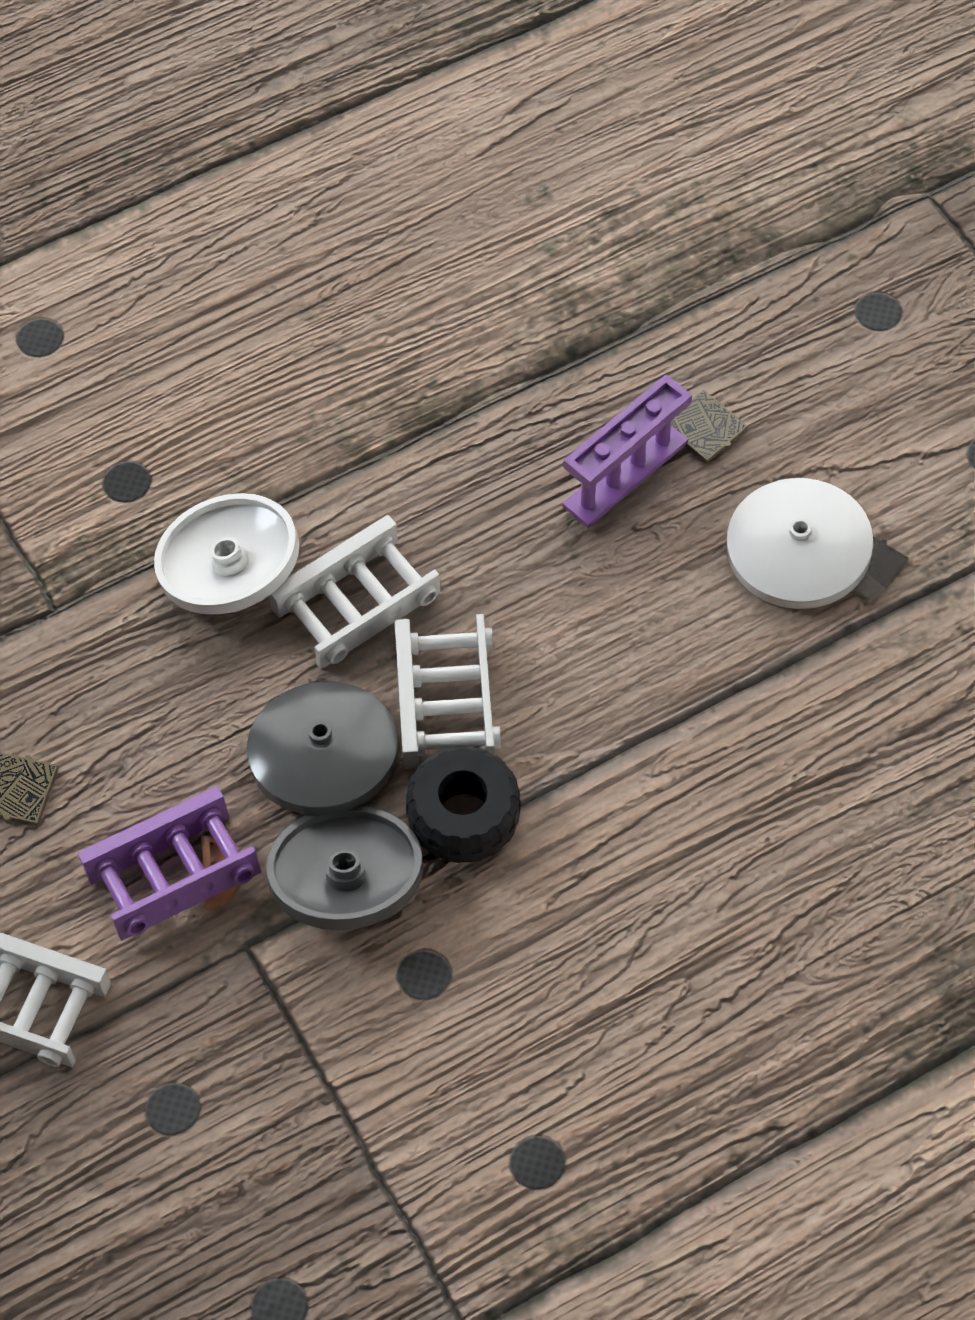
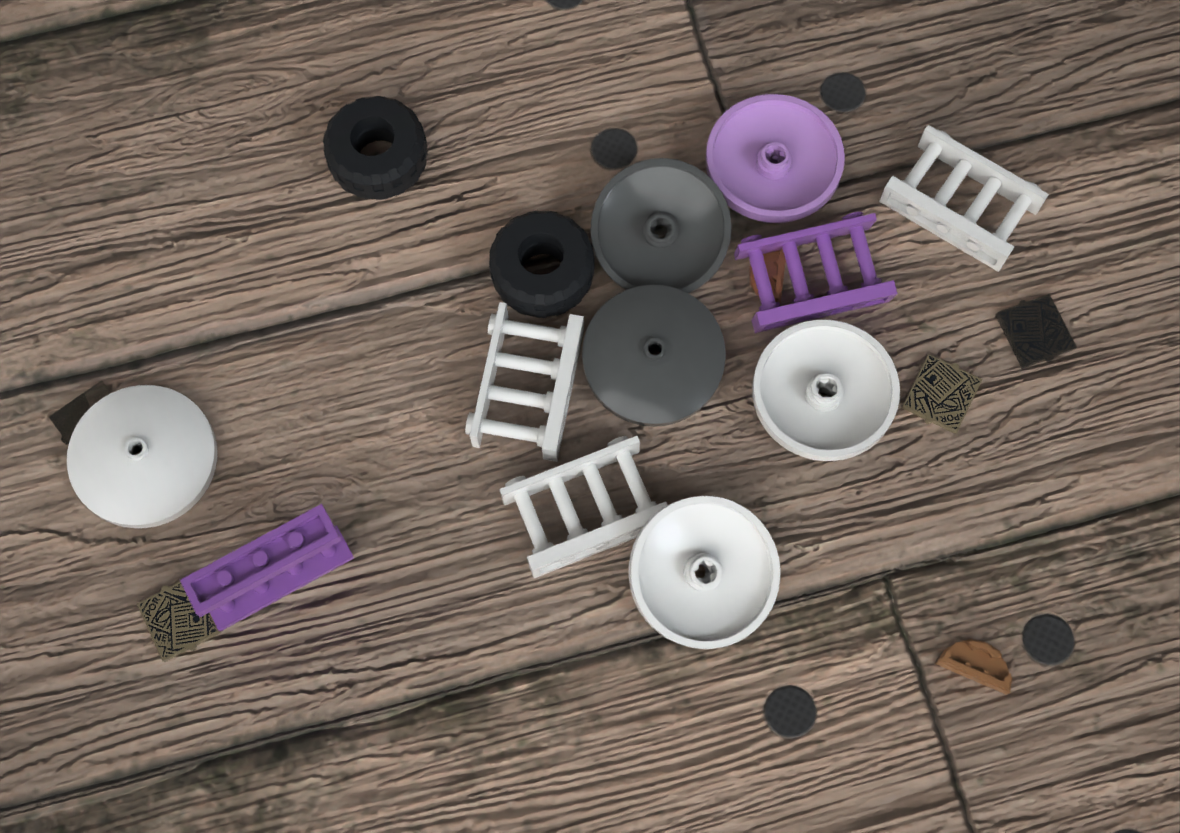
camera: 165 degrees left, 10 degrees up
(138, 744) = (833, 361): none -> white dish
(230, 948) = (775, 158): none -> lavender dish
(682, 920) = (371, 121): none -> black tyre

